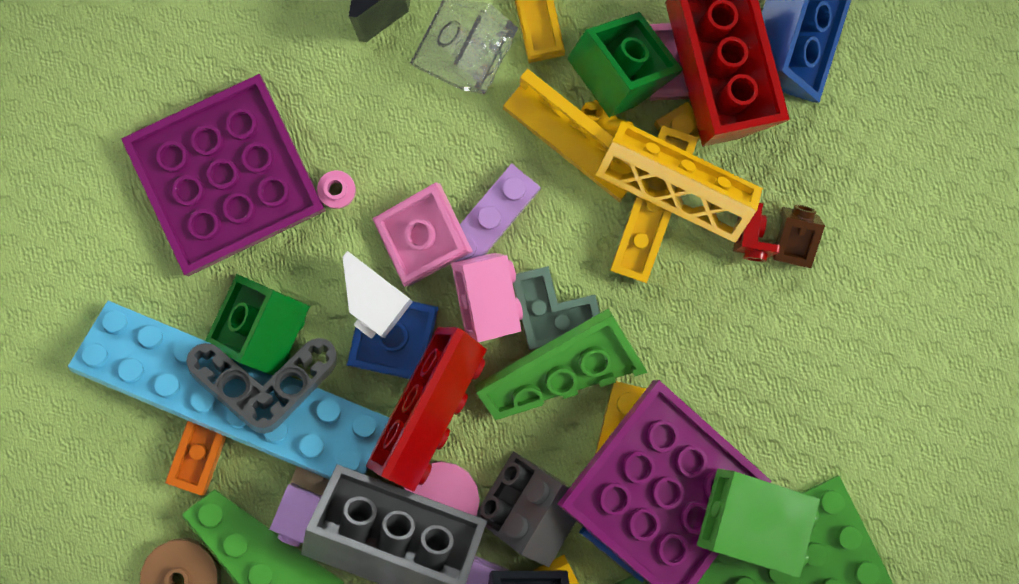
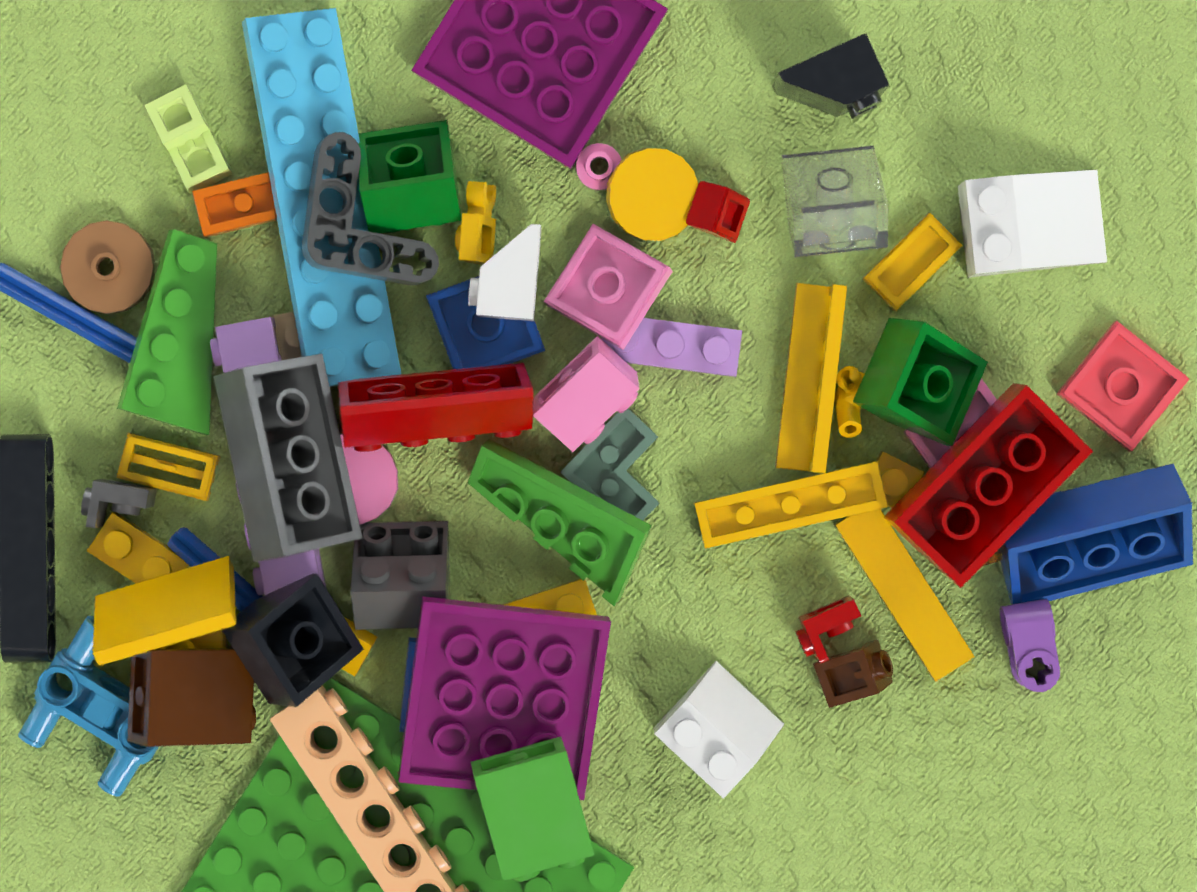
camera: 65 degrees right, 5 degrees up
(128, 462) = (188, 139): none -> yellowish green slope
(326, 302) = (477, 230): none -> yellow plate
(378, 164) = (651, 193): none -> yellow tile
(419, 128) = (718, 211): none -> red slope
(683, 176) = (835, 516): yellow fence -> none
(776, 164) = (905, 592): none -> yellow tile
(780, 354) = (719, 729): none -> white slope
(848, 100) = (1030, 635): none -> medium lavender piece

